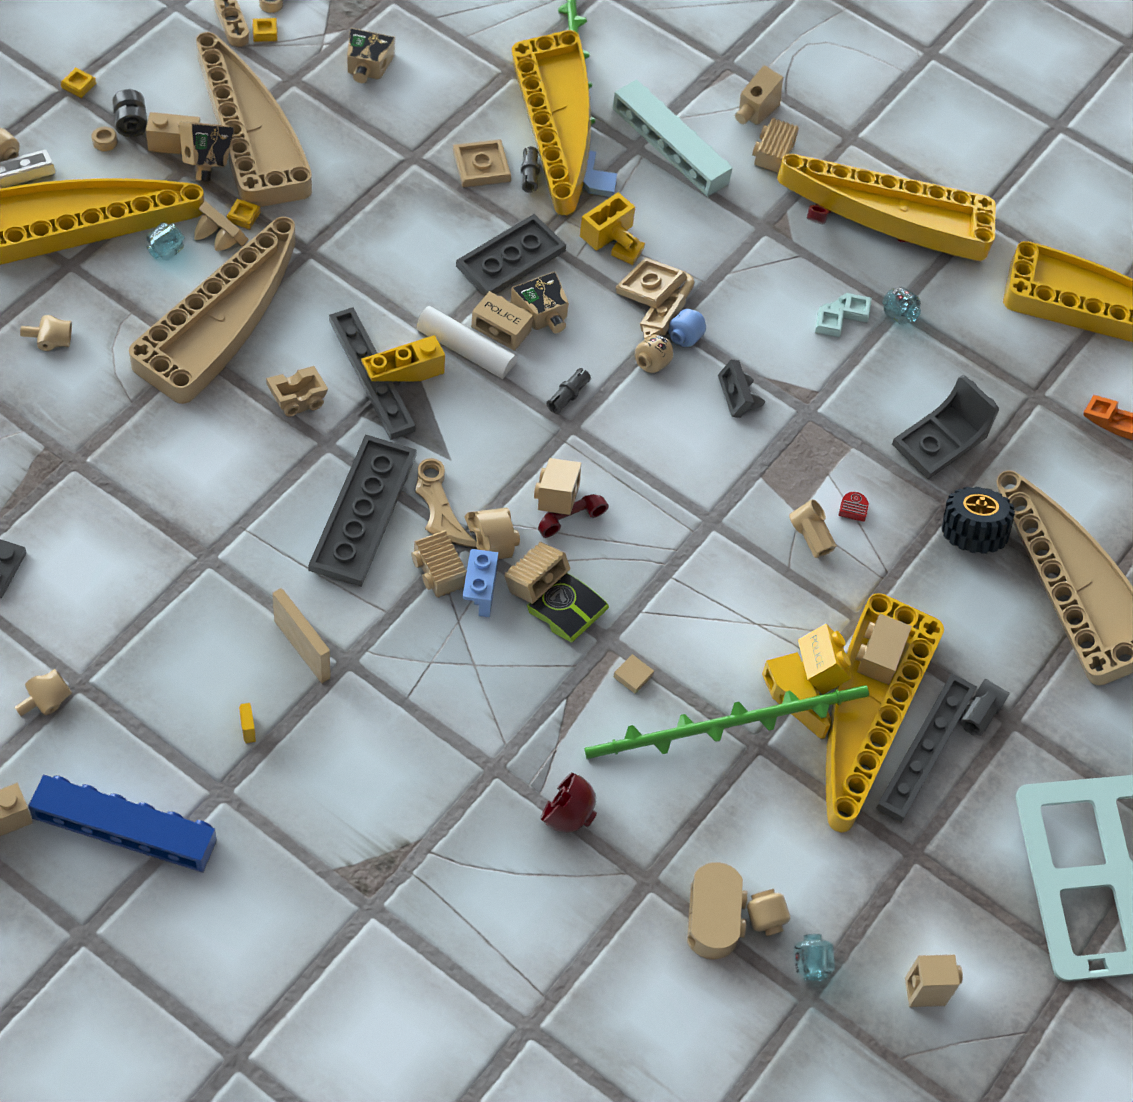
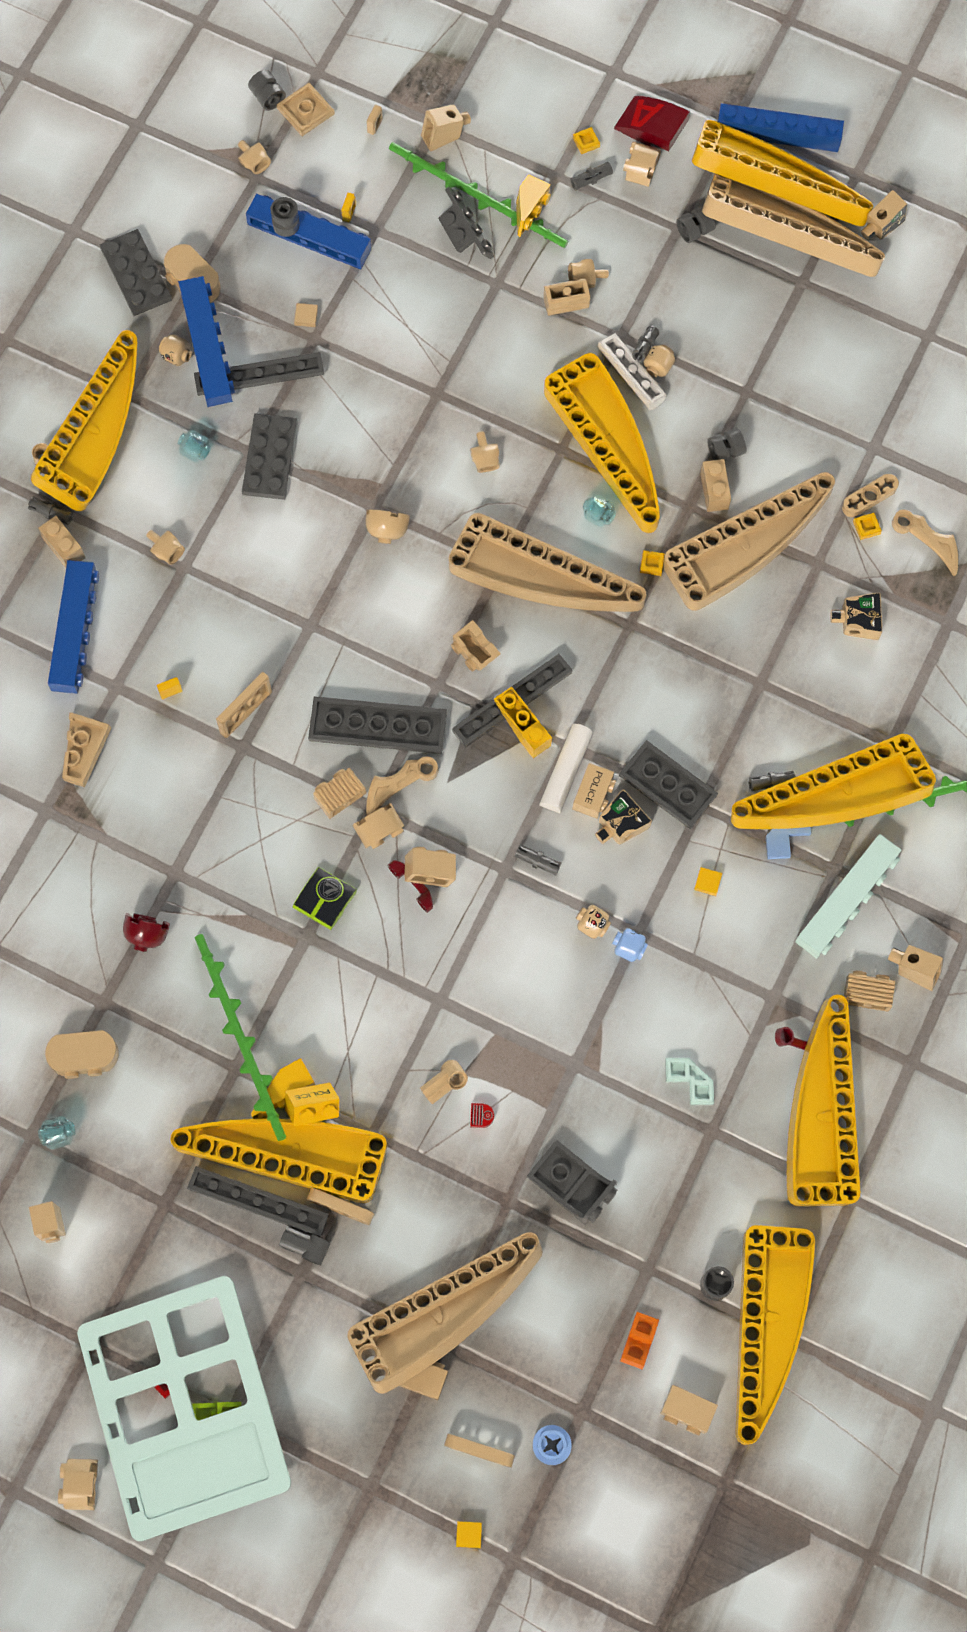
camera: 85 degrees right, 15 degrees up
(78, 82) = (755, 398): yellow tile -> none
(104, 138) = (699, 435): tan tile -> none
(109, 443) = (386, 525): none -> tan cylinder
(205, 146) = (702, 511): torso -> none
(214, 220) = (633, 543): tan tile -> none
(299, 841) = (84, 746): none -> tan wing
(481, 163) = (769, 740): tan tile -> none
(481, 579) = (327, 826): light blue bracket -> none
(536, 572) = (347, 866): tan brick -> none
(610, 222) = (723, 858): yellow brick -> none
(633, 674) = (276, 960): tan tile -> none
(651, 282) = (671, 906): tan tile -> none
(658, 320) = (648, 924): tan plate -> none
(736, 389) = (566, 1003): dark grey tile -> none
(768, 912) = (87, 1093): tan head -> none
(883, 649) = (331, 1150): tan brick -> none
(902, 305) = (709, 1130): clear light blue head -> none
(942, 661) = (340, 1206): none -> tan beam
(978, 520) = (482, 1219): black wheel -> none
(1064, 333) = (716, 1283): none -> dark grey wheel

